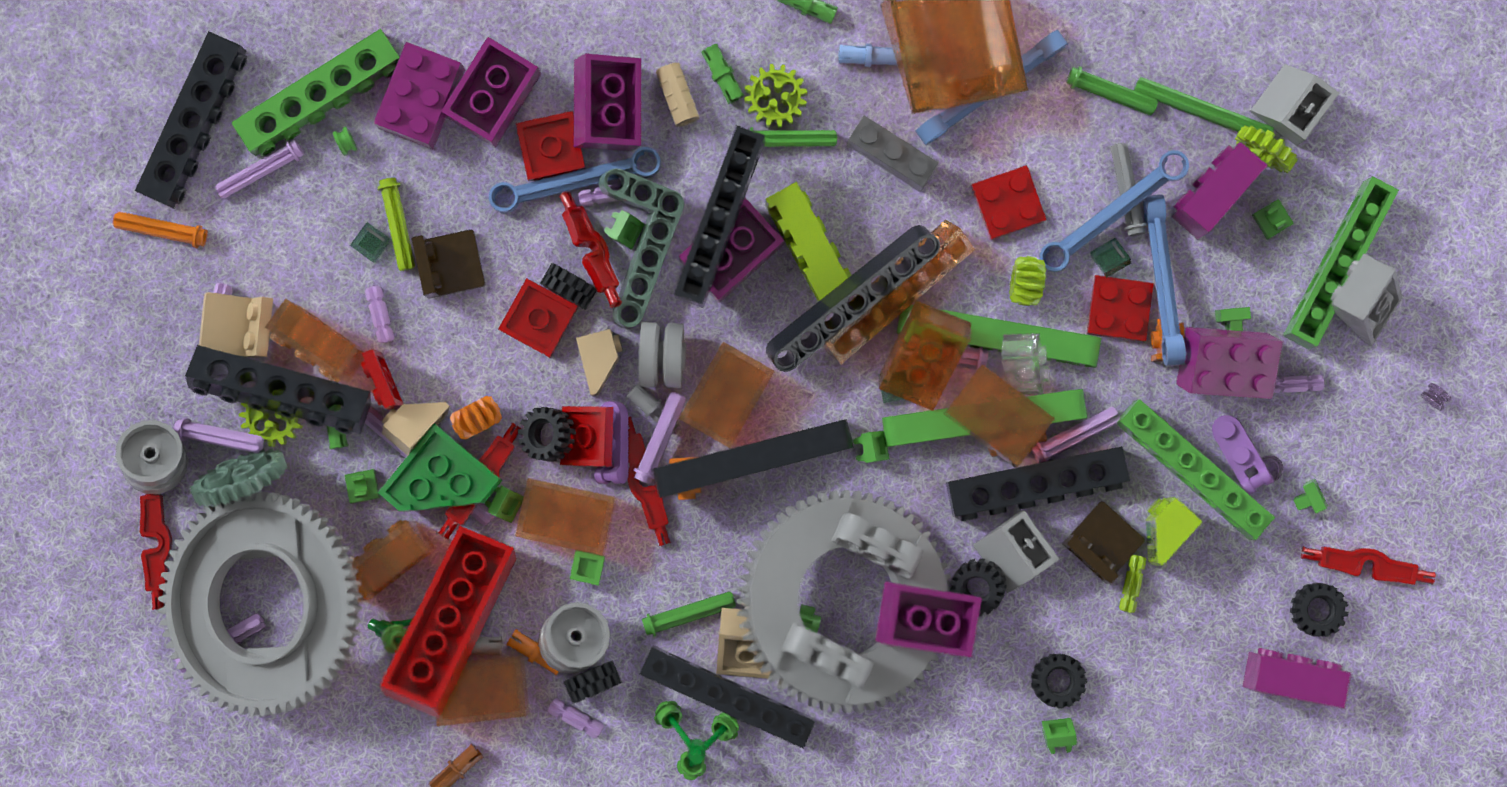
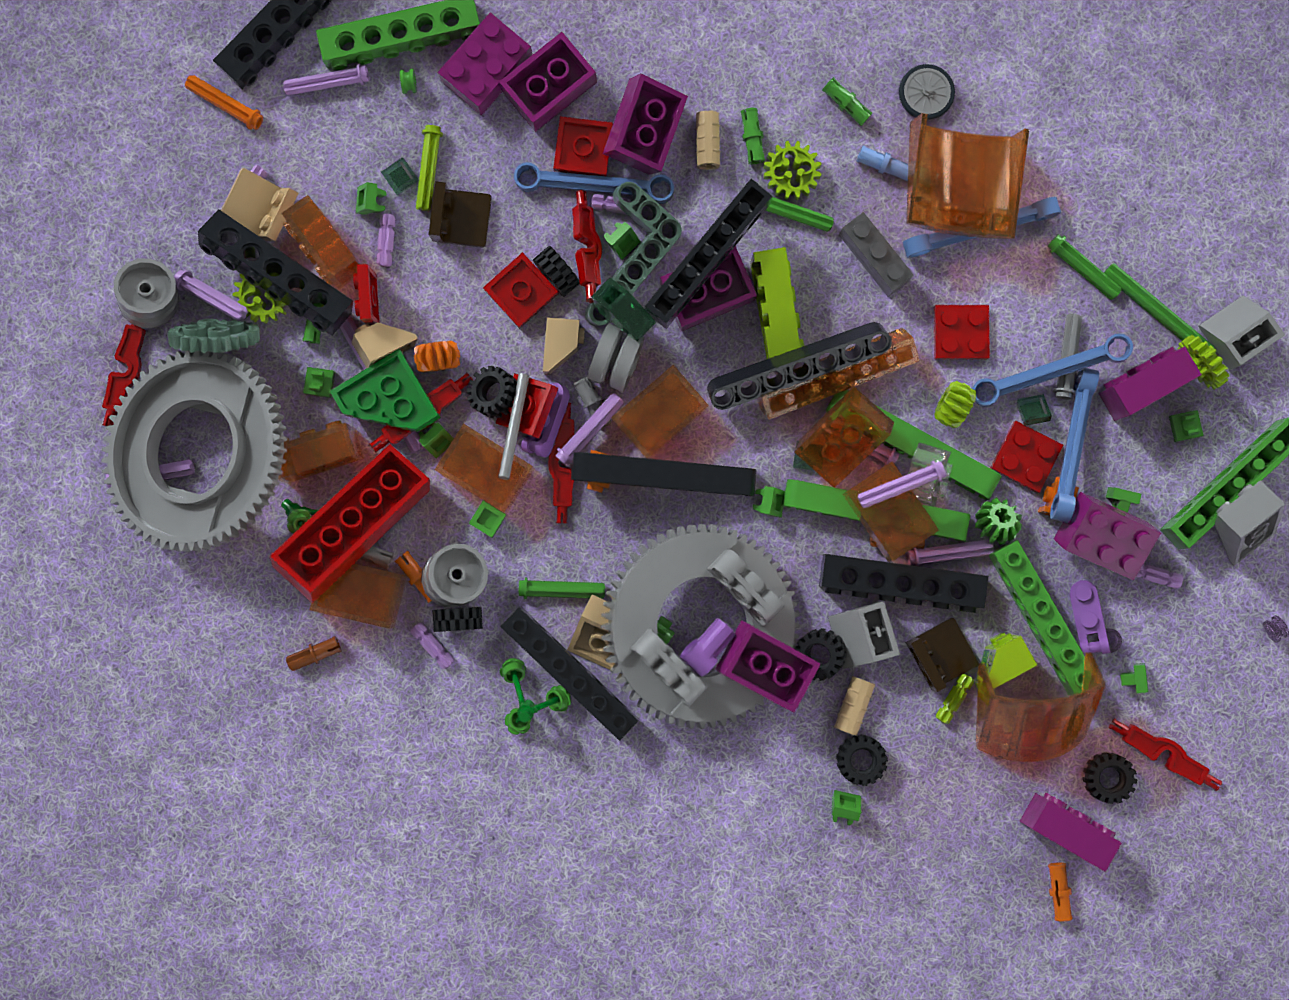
camera: 15 degrees right, 0 degrees up
(345, 278) = (366, 199): none -> bright green tile
(581, 463) = (513, 428): none -> light grey bar
(652, 304) = (622, 309): none -> clear green slope
(857, 629) = (702, 652): none -> medium lavender piece
(1001, 385) = (903, 484): none -> lavender axle
(1032, 627) = (854, 705): none -> tan axle
(1123, 381) = (998, 521): none -> bright green gear
(1224, 586) = (1036, 728): none -> clear orange windscreen
(1308, 744) = (1060, 891): none -> orange pin

